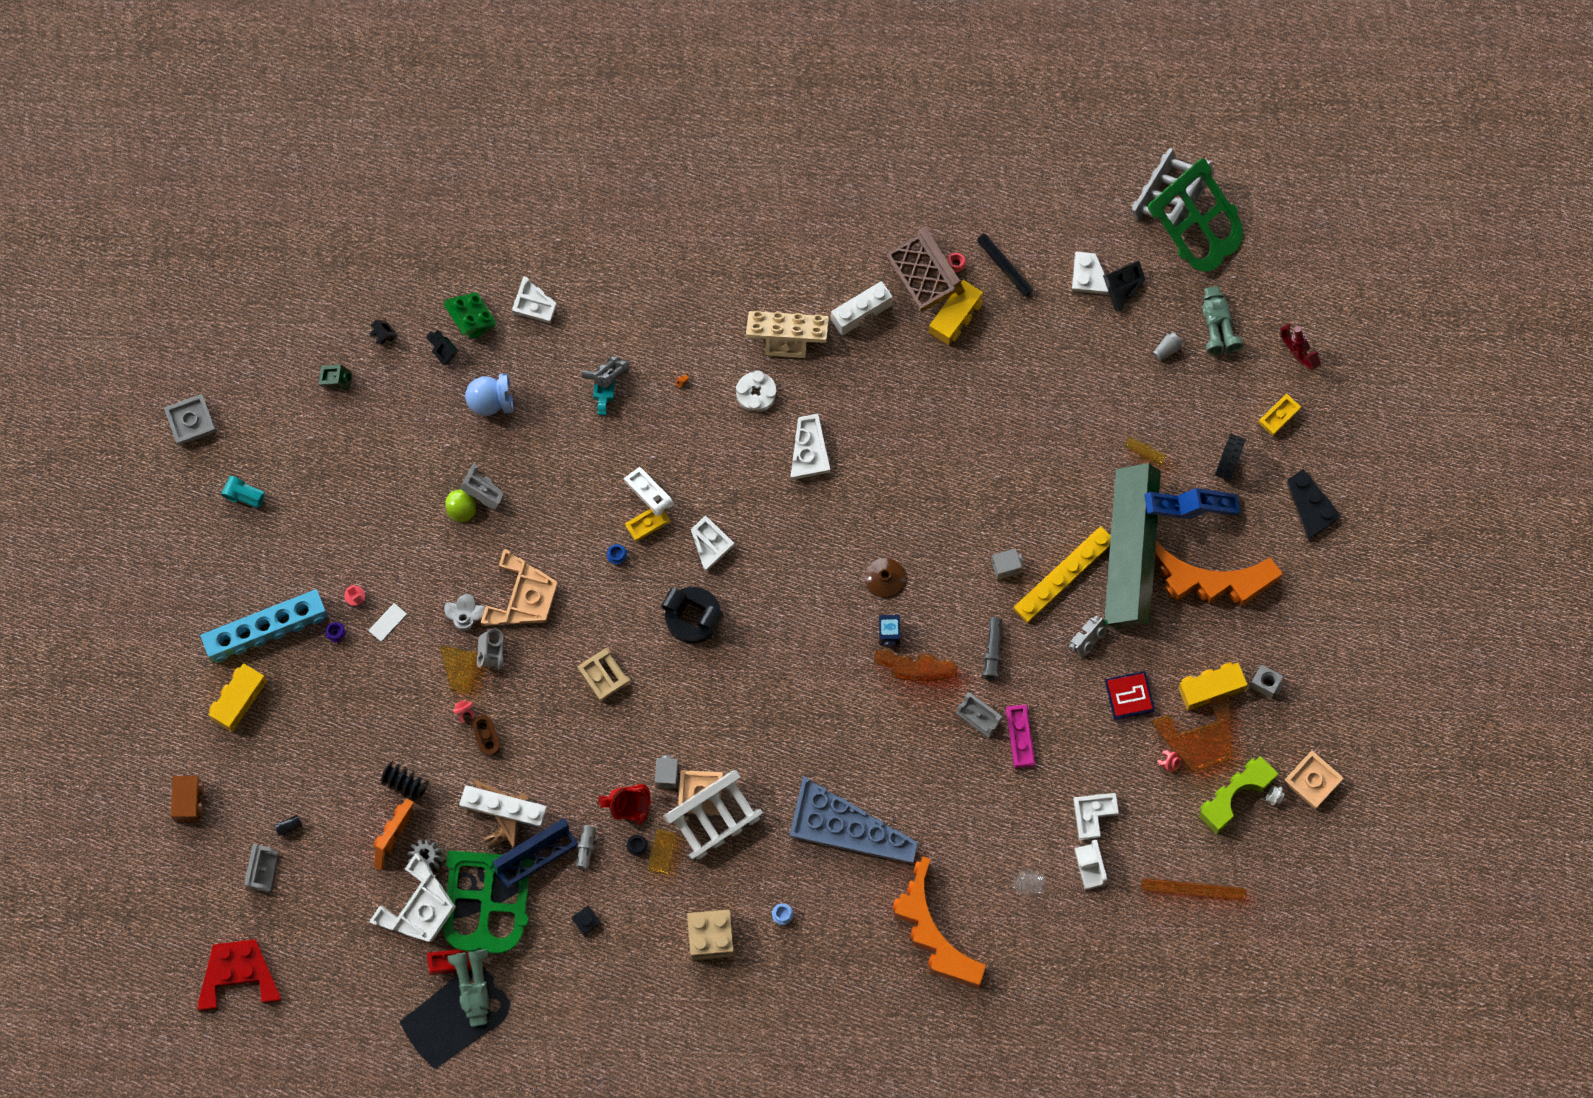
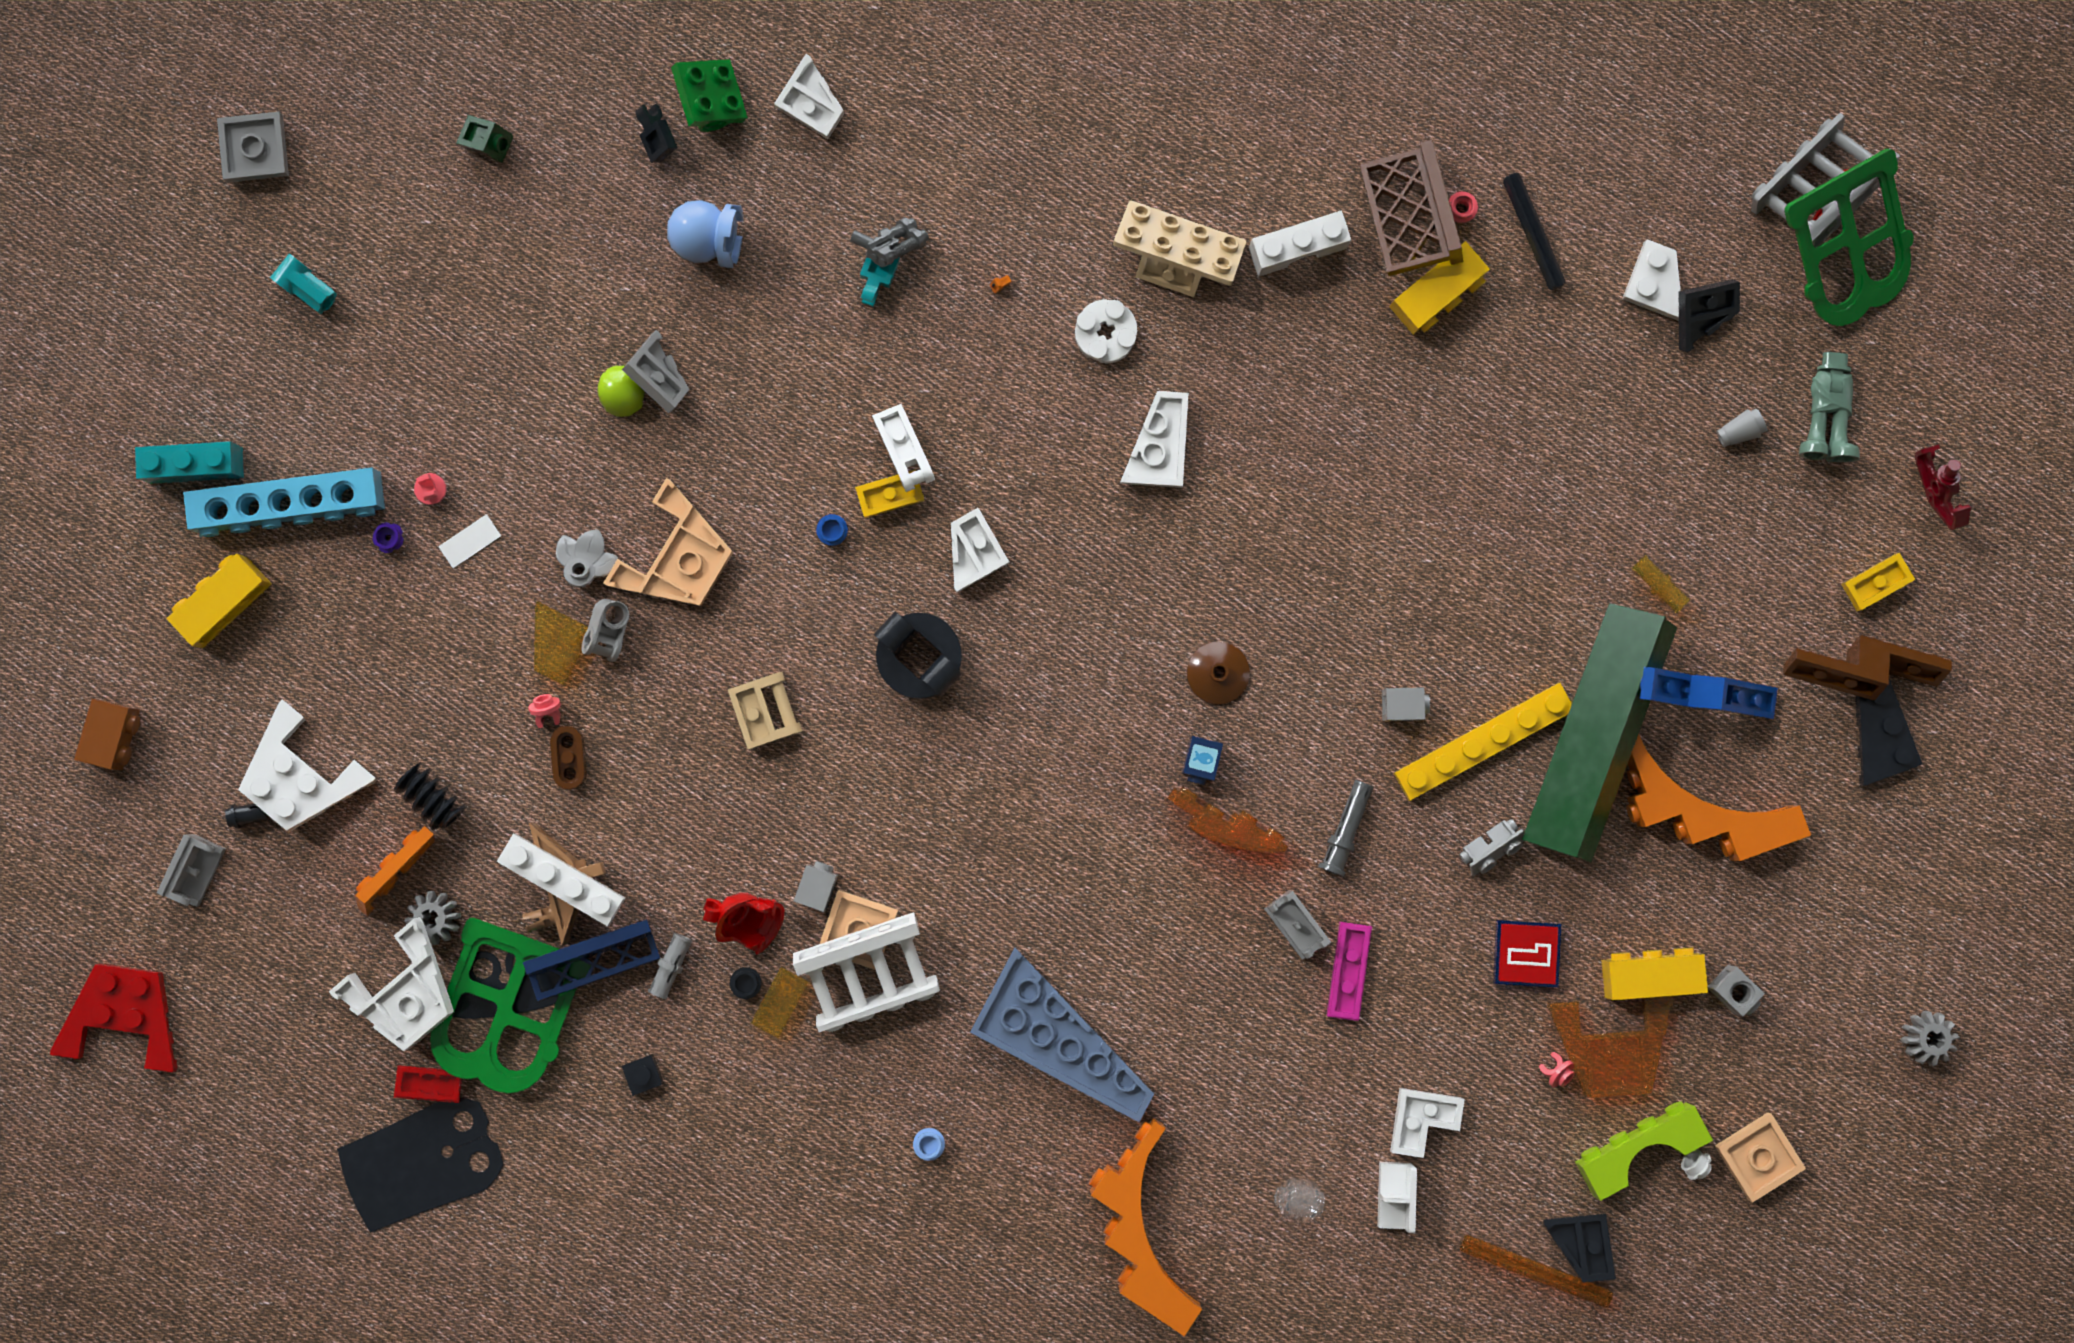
camera: 10 degrees right, 15 degrees up
(197, 618) = (189, 462): none -> teal brick
(310, 799) = (287, 785): none -> white wing
(383, 330) = (574, 84): black tile -> none
(474, 996) = (450, 1149): sand green piece -> none
(710, 934) = (815, 1150): tan piece -> none
(1218, 863) = (1584, 1245): none -> black wing
(1230, 457) = (1787, 633): black tyre -> none
(1287, 465) = (1867, 667): none -> reddish brown bracket
(1401, 684) = (1940, 1042): none -> light grey gear

